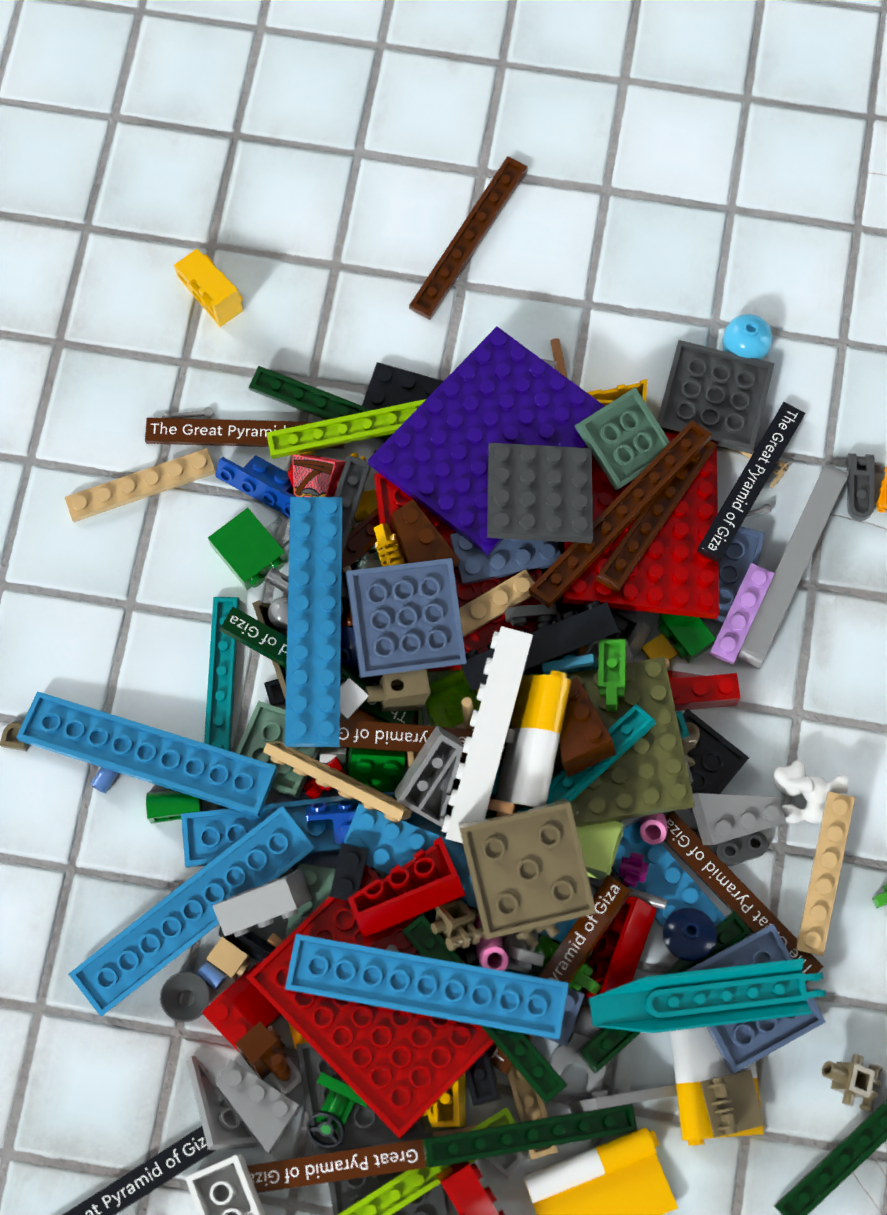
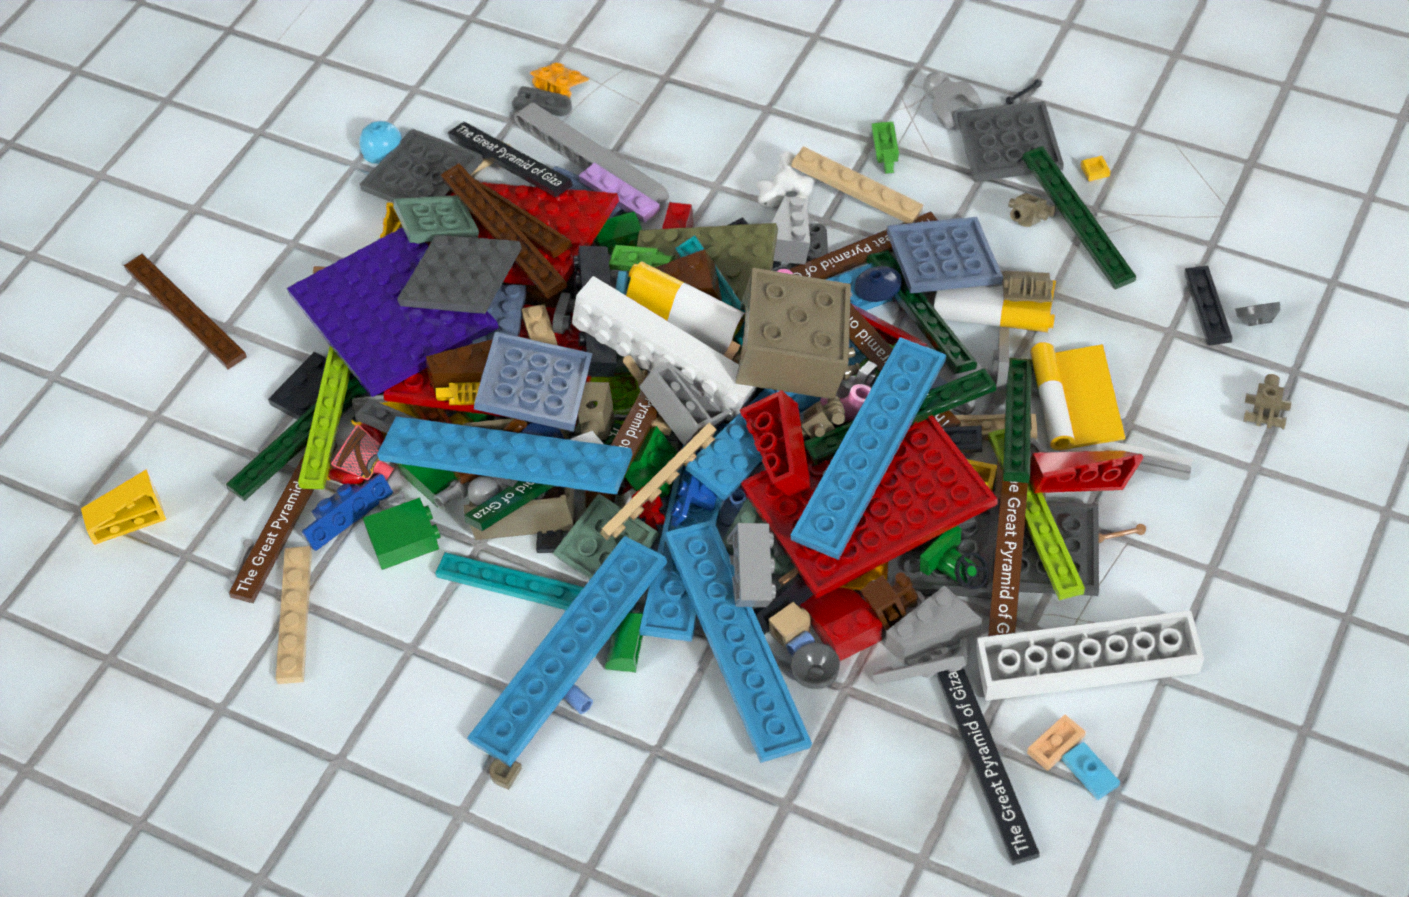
camera: 70 degrees left, 20 degrees down
(349, 871) = (747, 487): black plate -> none
(706, 998) = (937, 272): teal hinge -> none

